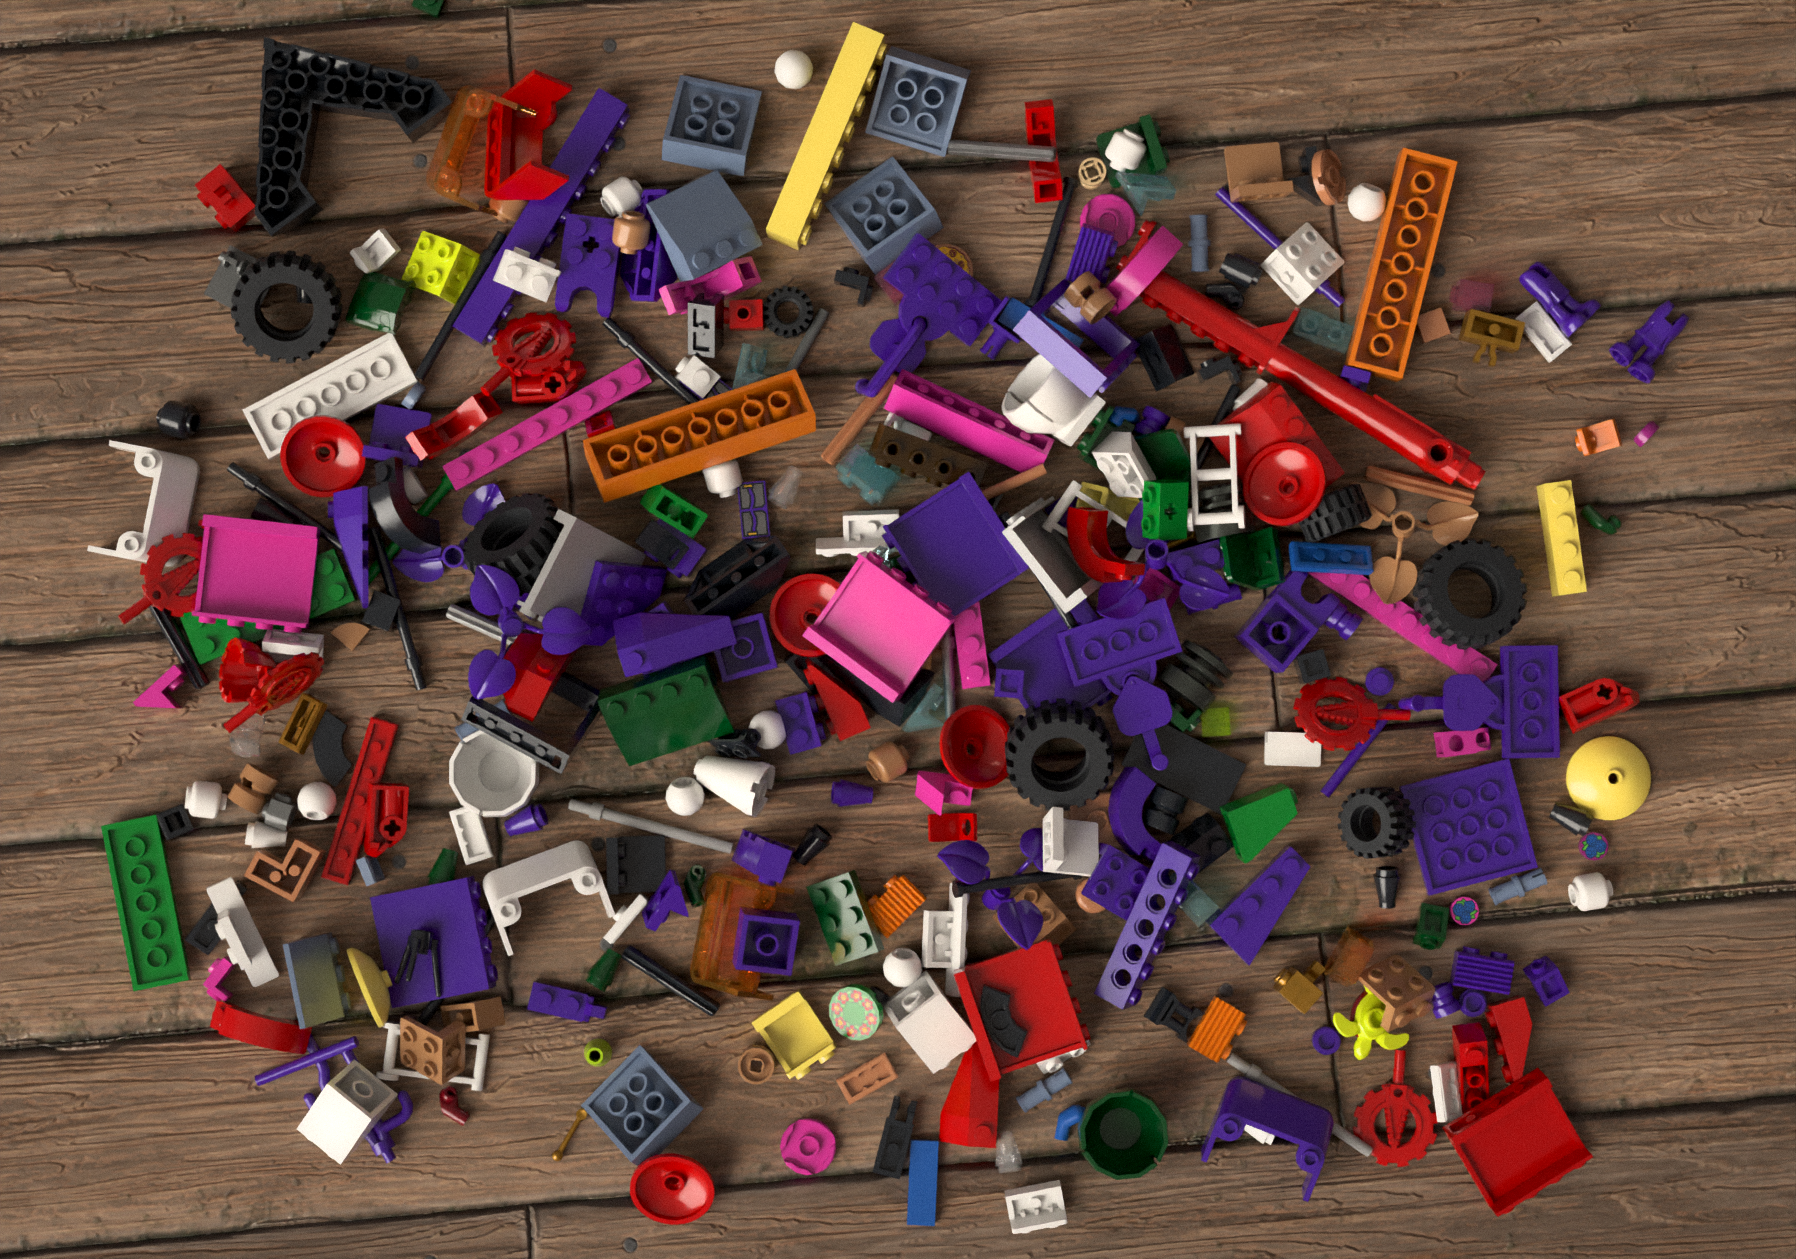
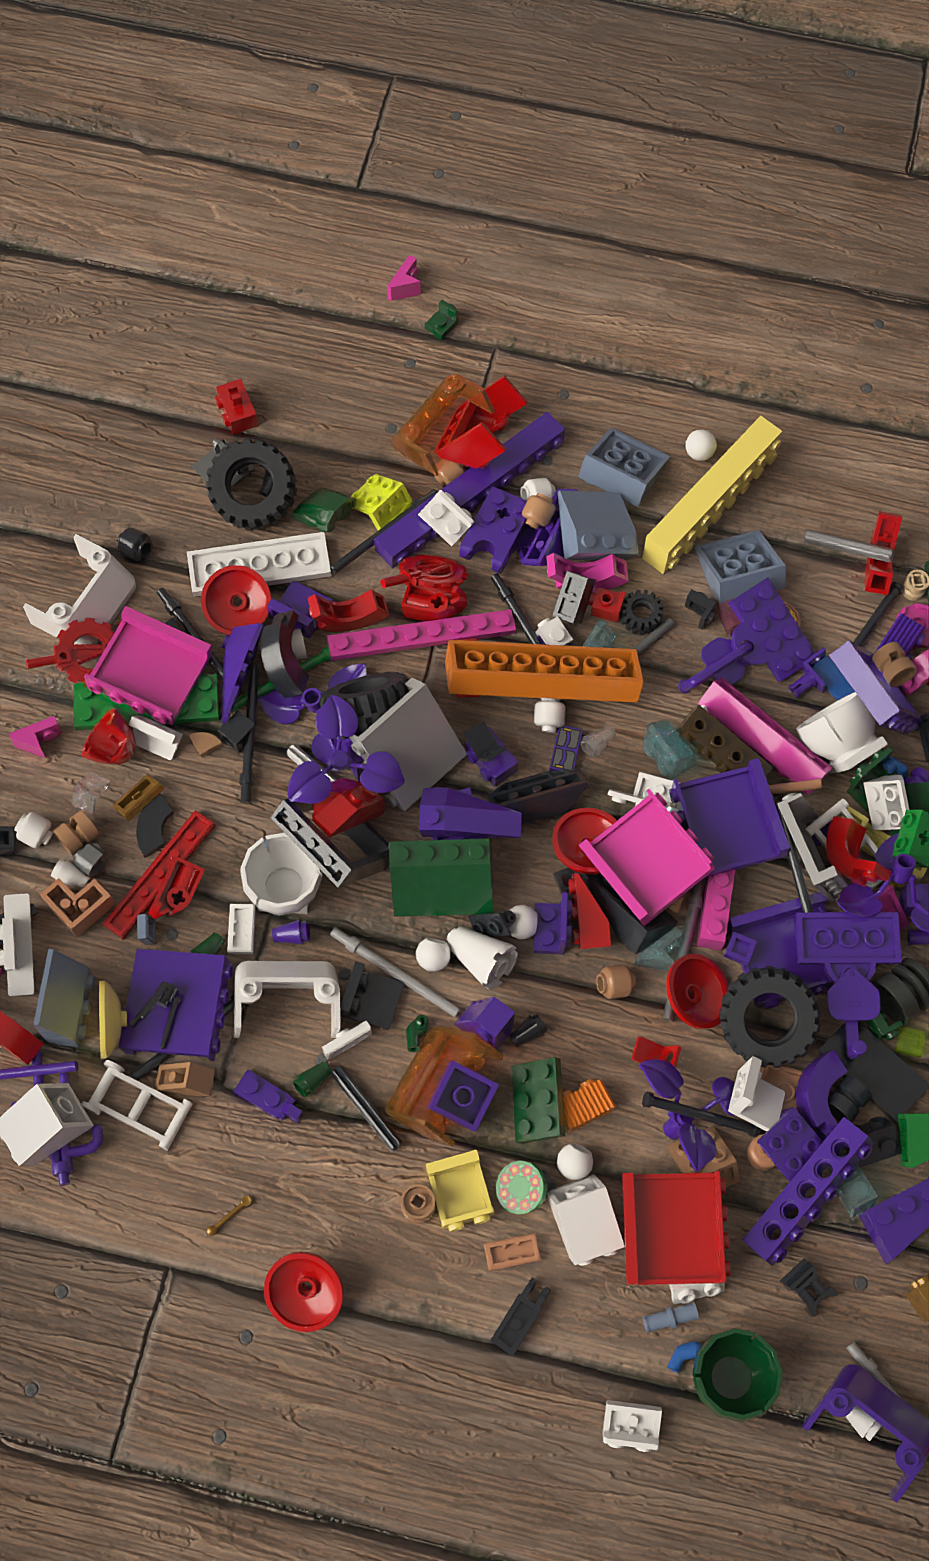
camera: 15 degrees right, 20 degrees down
(180, 647) = (64, 707): black axle -> none
(280, 687) = (123, 759): red bar -> none
(295, 90) = (327, 348): black wedge -> none
(316, 801) = (124, 859): white piece -> none
(375, 252) = (334, 475): white bracket -> none
(414, 395) = (324, 582): sand blue tile -> none
(433, 1053) = (138, 1096): medium nougat bracket -> none
(449, 1106) = (134, 1154): dark red arm -> none
(602, 1047) = (283, 1154): lime cone -> none
(618, 592) = (432, 767): dark purple plate -> none
(641, 1107) = (303, 1209): sand blue slope -> none
(666, 898) = (390, 1031): dark purple slope -> none
(674, 509) = (503, 722): green brick -> none
(752, 652) = (525, 855): dark purple brick -> none
(808, 1146) = (438, 1298): dark pink tile -> none
(850, 793) = (576, 999): dark purple cone -> none
(856, 423) = (674, 707): nougat axle -> none
(917, 101) = (790, 495): sand blue slope -> none
(922, 1182) = (532, 1368): blue tile -> none
(941, 788) = (654, 1018): dark pink slope -> none
(945, 939) = (621, 1149): white bracket -> none
(971, 1105) = (600, 1307): red wedge -> none
(999, 1021) = (650, 1234): black tile -> none
(1007, 1153) = (619, 1367): clear cone -> none
(1217, 1030) = (845, 1314): orange brick -> none

